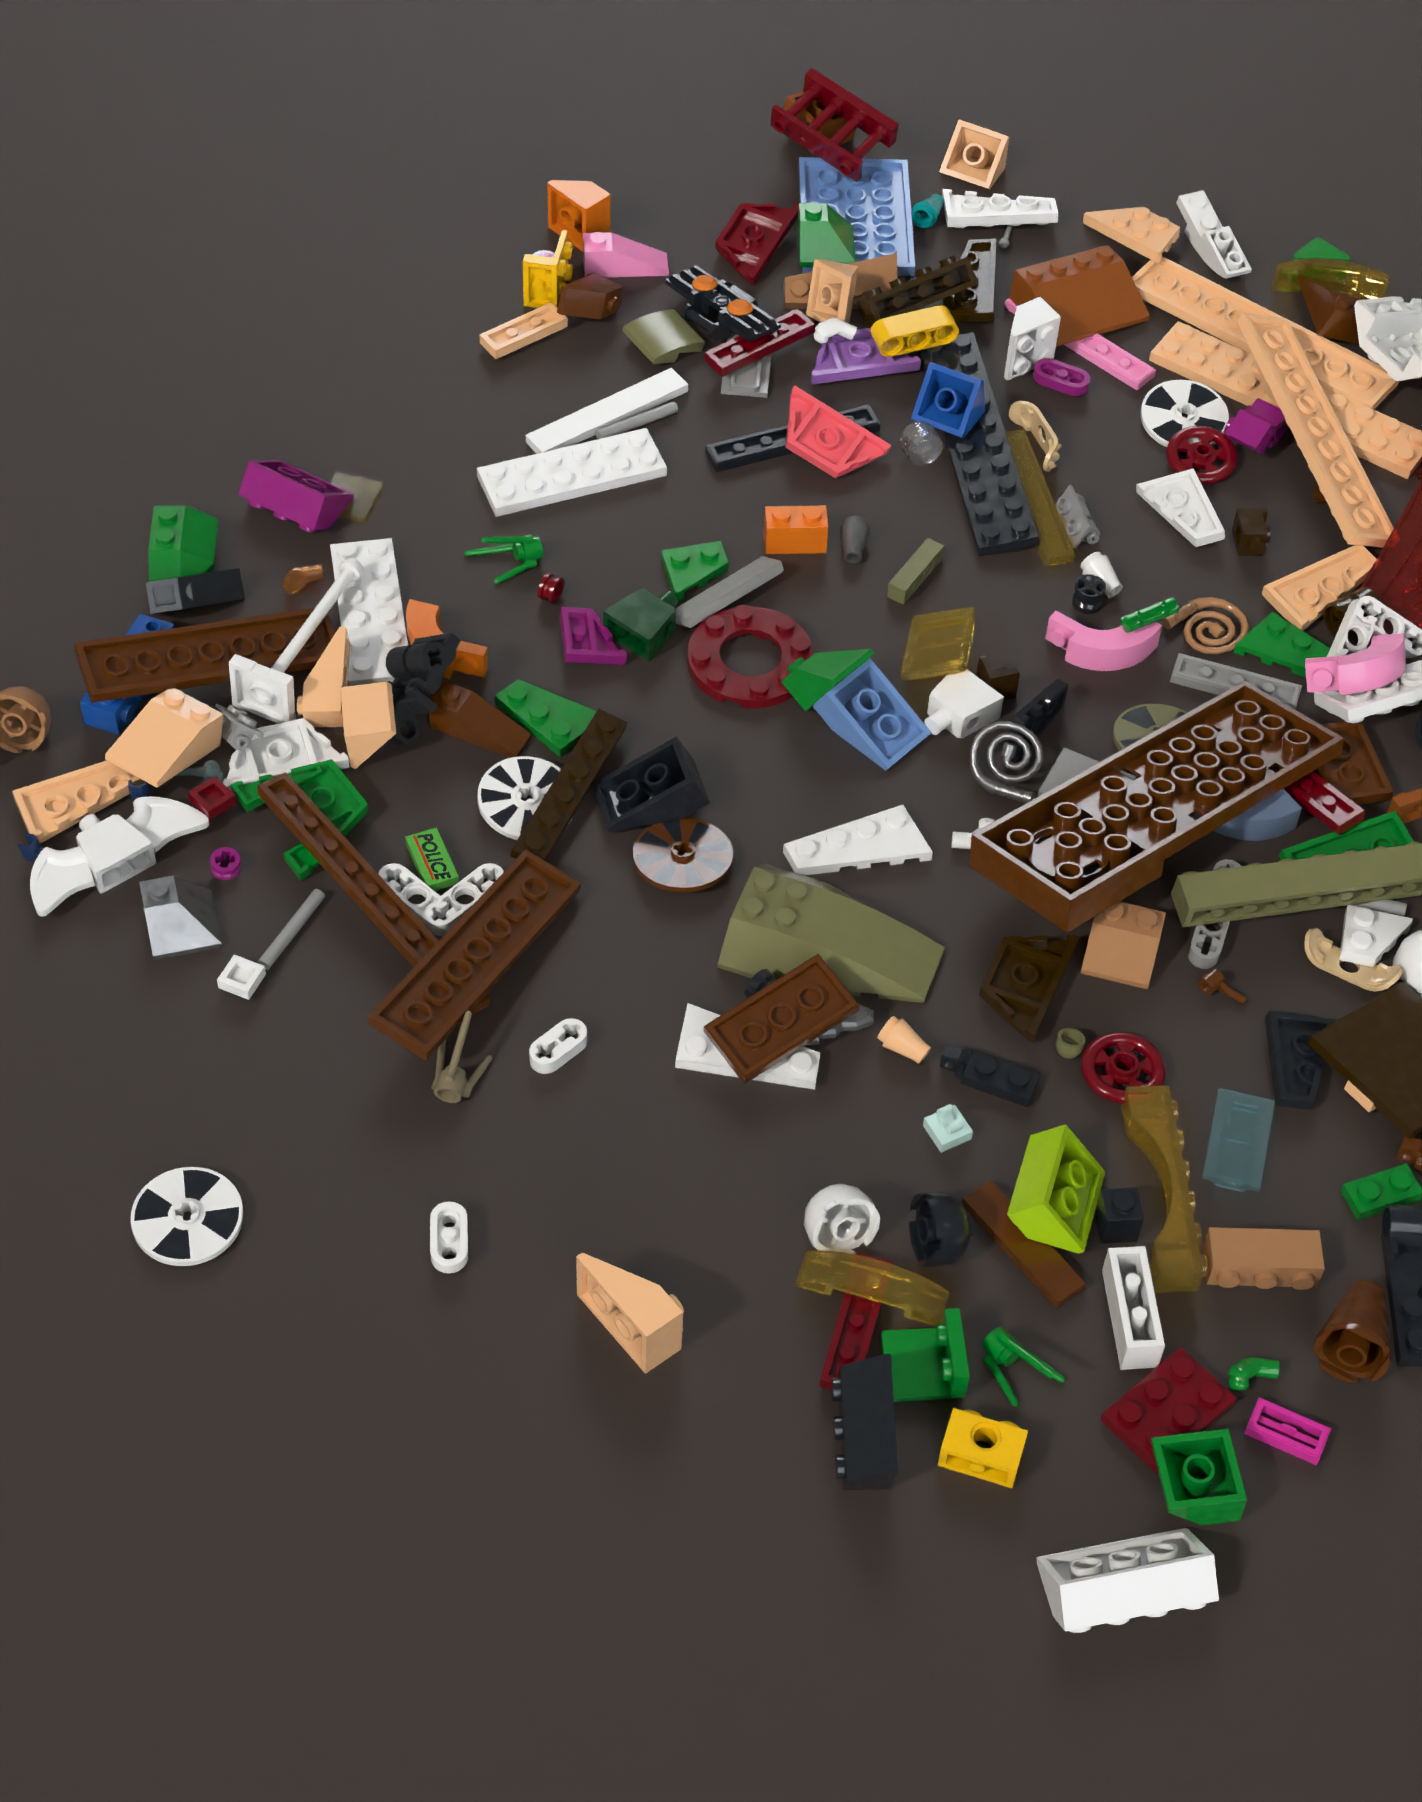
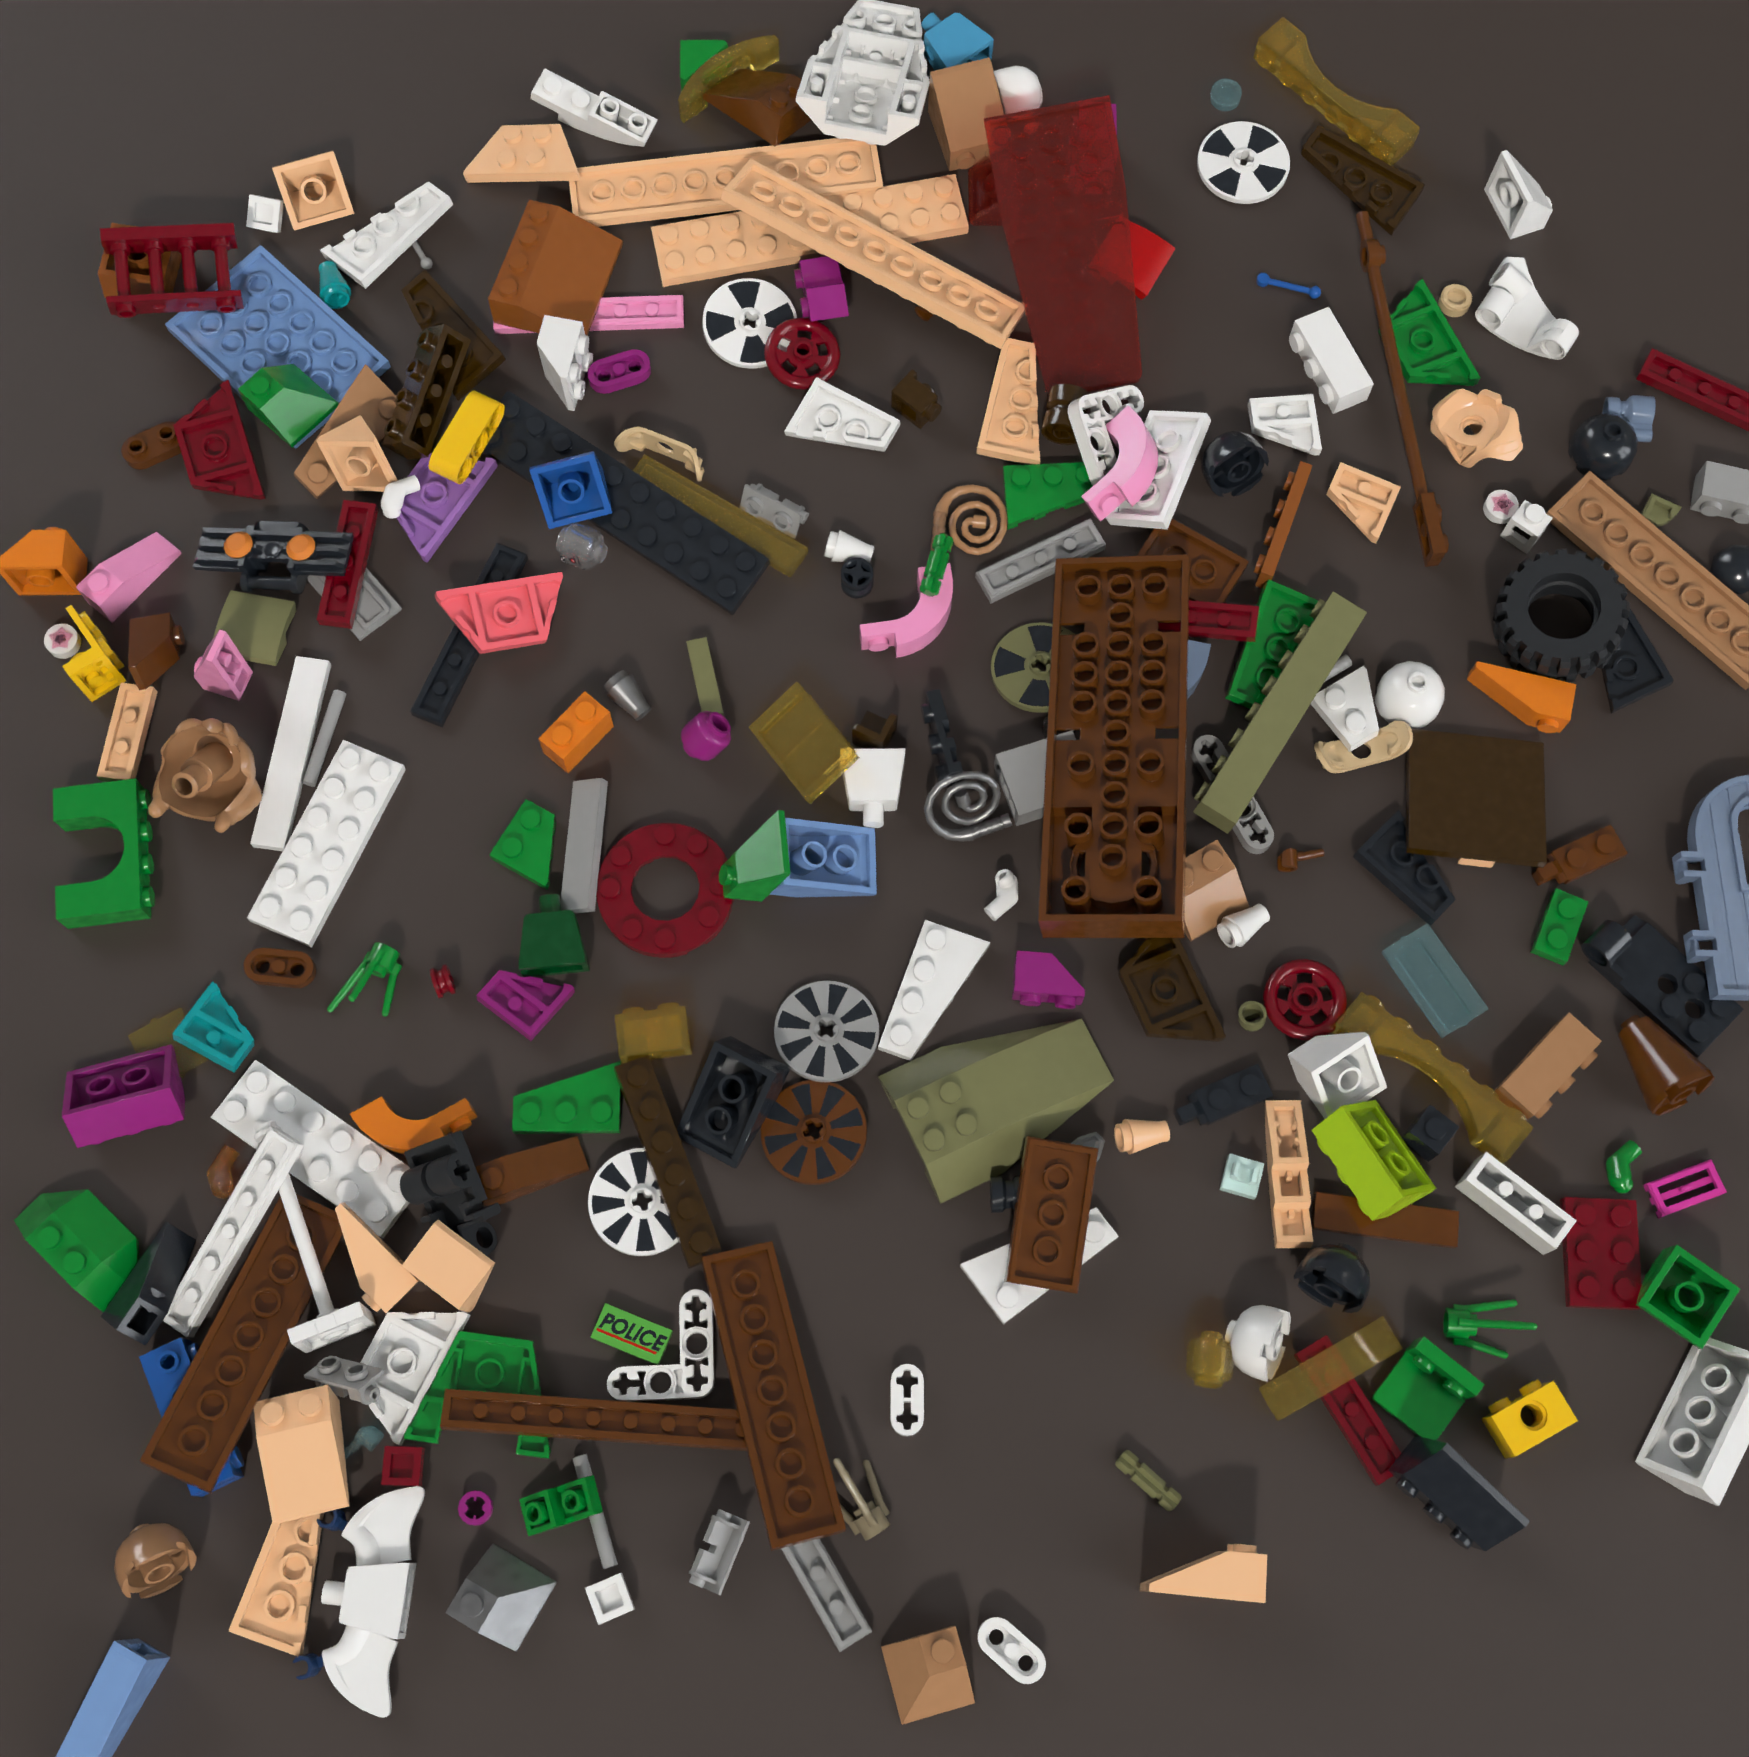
camera: 45 degrees left, 20 degrees up
(275, 906) = (561, 1505): none -> green slope
(278, 595) = (232, 1231): none -> white tile
(323, 1014) = (713, 1566): none -> light grey hinge
(377, 1095) = (827, 1592): none -> light grey tile
(383, 1200) = (928, 1674): none -> medium nougat slope
(386, 505) = (215, 1030): none -> teal wing
(426, 400) = (127, 890): none -> green arch
(464, 506) = (281, 967): none -> reddish brown plate
(543, 373) = (206, 774): none -> medium nougat piece
(618, 330) = (223, 668): none -> bright pink slope
(648, 716) = (653, 1032): none -> clear yellow brick
(661, 1234) = (1148, 1480): none -> olive axle
(713, 210) = (154, 446): none -> reddish brown plate
(783, 807) = (826, 1057): none -> light grey piece
(787, 1200) = (1209, 1360): none -> clear yellow head
(877, 592) = (706, 735): none -> magenta head
(929, 148) = (265, 213): none -> white plate
(941, 899) = (1043, 978): none -> magenta slope
(985, 1151) = (1288, 1174): none -> light nougat slope
(1100, 1121) = (1338, 1070): none -> white slope
(1127, 987) = (1242, 925): none -> white cone

